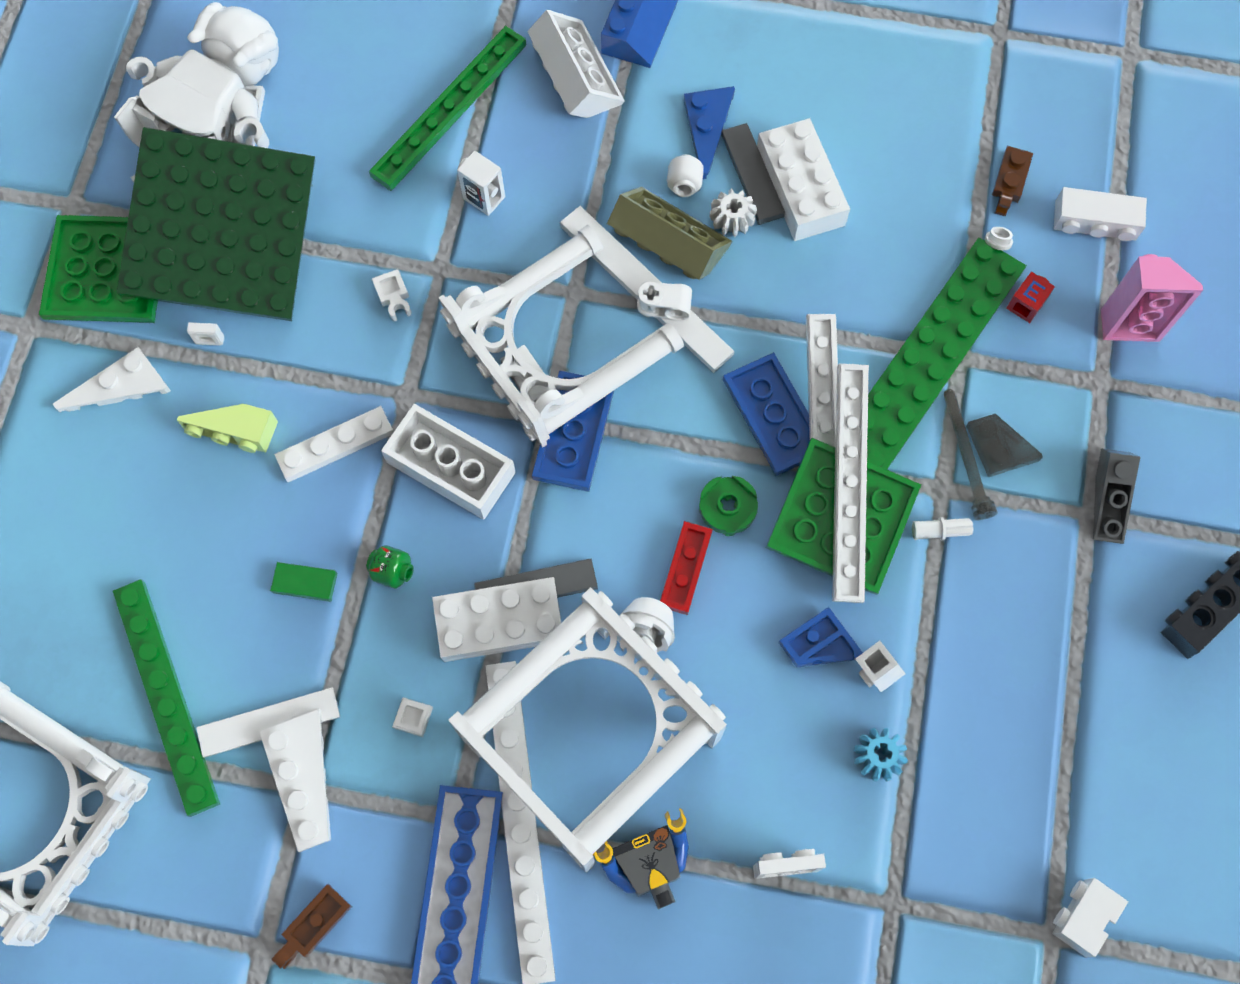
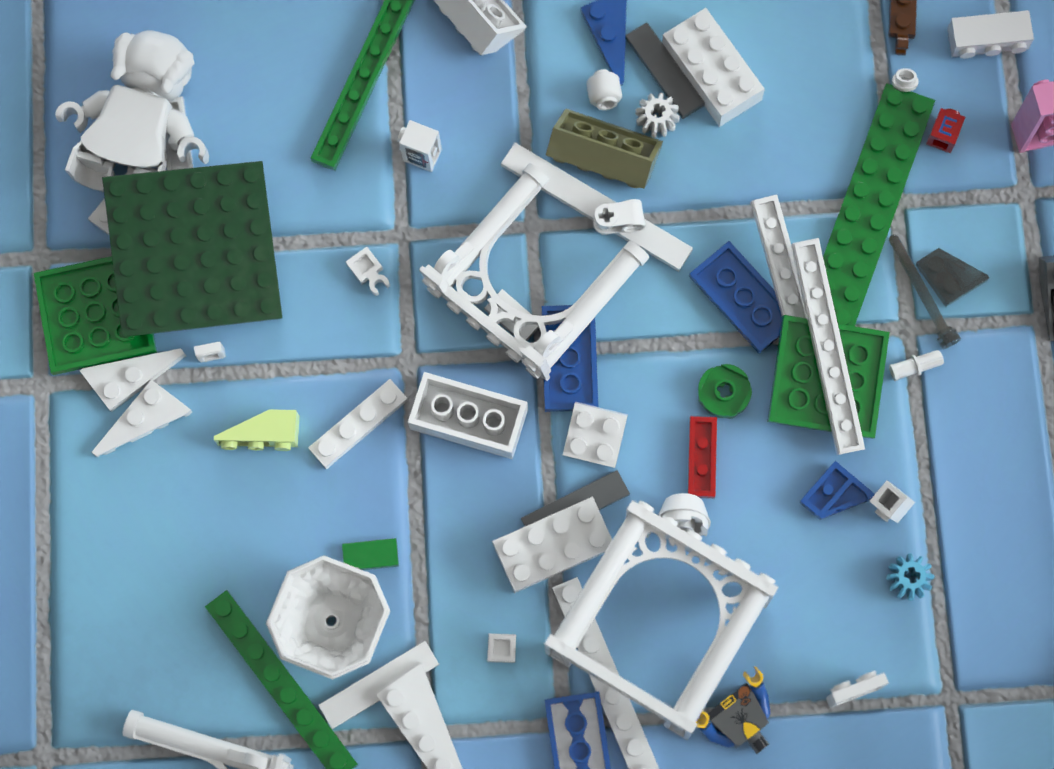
camera: 10 degrees left, 5 degrees up
(111, 340) = (124, 378): none -> white wing
(210, 617) = (314, 595): none -> white rock
(389, 566) = (443, 522): green head -> none
(577, 515) = (595, 434): none -> white plate

